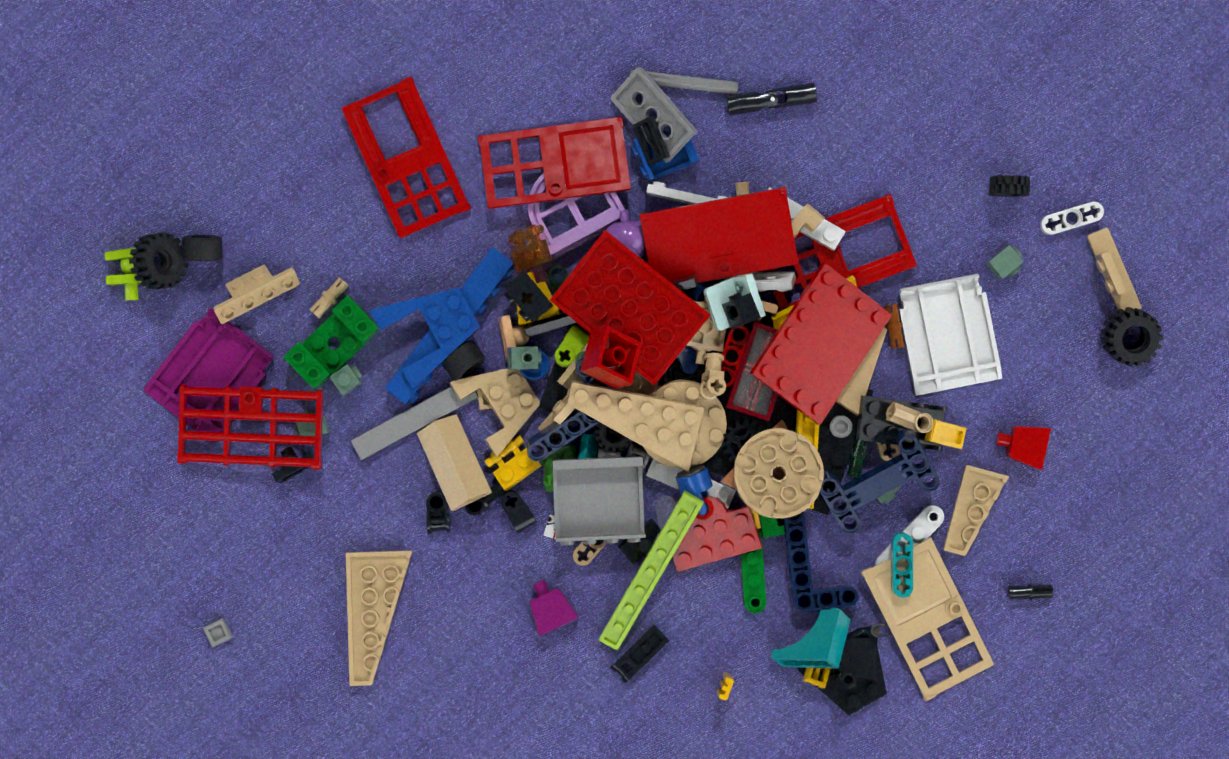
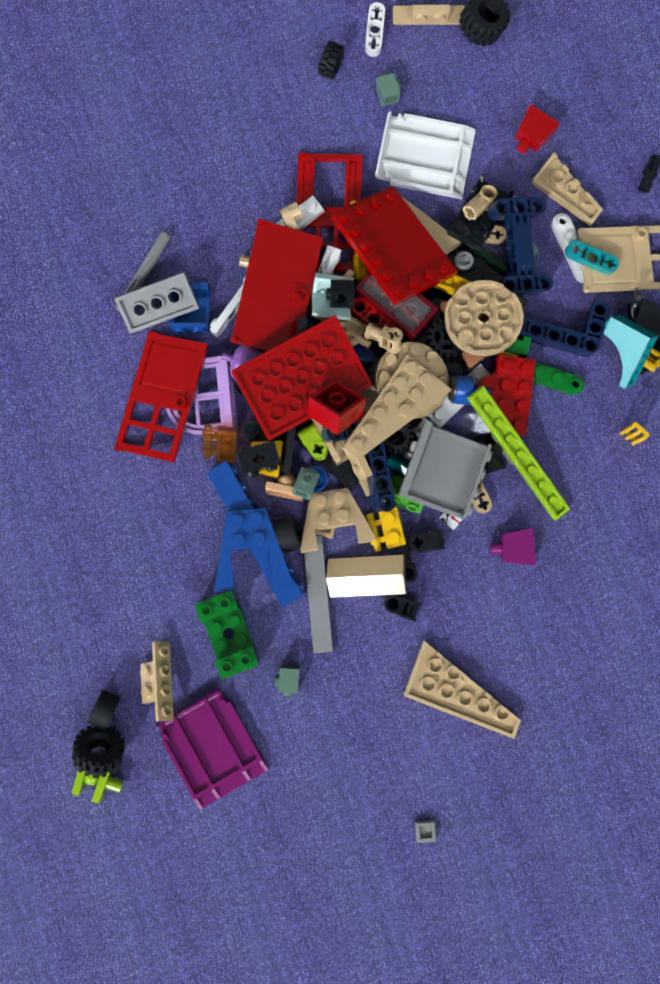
camera: 70 degrees left, 5 degrees down
(250, 409) = (253, 724): red door -> none
(289, 472) = (314, 708): black tile -> none
(329, 297) = (190, 622): tan pin -> none
(347, 379) = (262, 635): sand green brick -> none
(408, 163) = (110, 513): red door -> none
(640, 653) = (580, 491): black plate -> none
(654, 139) = (160, 312): black tile -> none
(756, 101) = (182, 222): black piece -> none
(894, 327) = (406, 192): dark orange pin -> none
(946, 434) = (503, 183): yellow tile -> none

